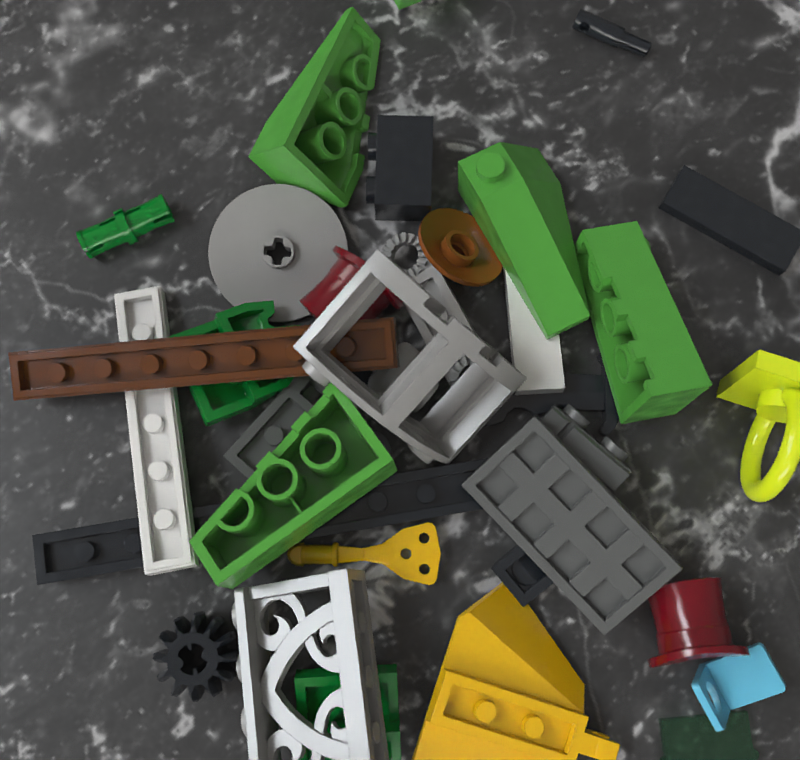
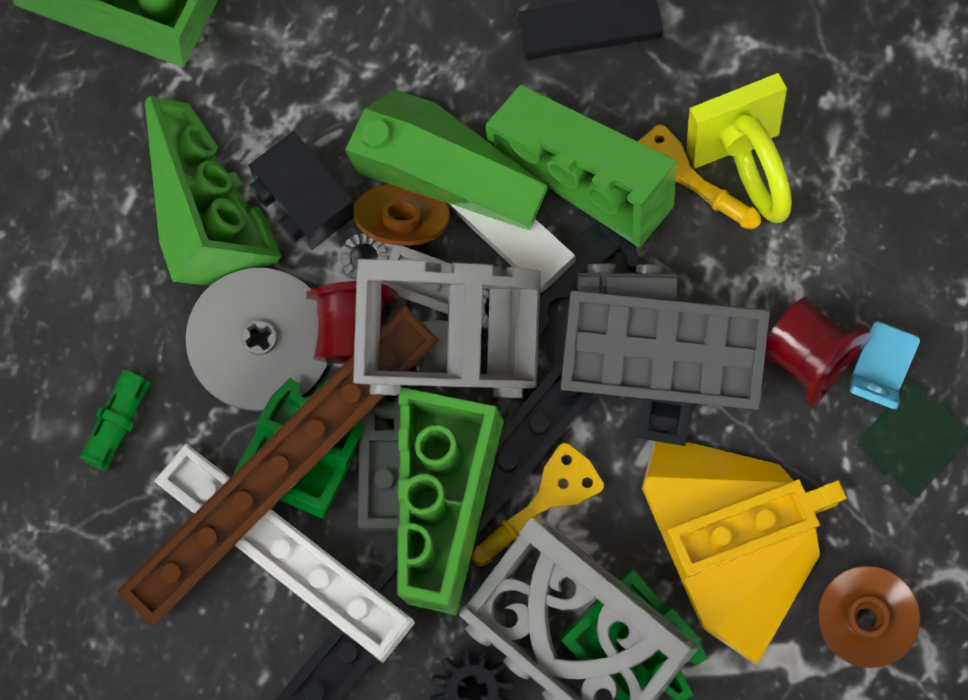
camera: 40 degrees left, 5 degrees down
(715, 434) = (719, 199): none -> yellow piece

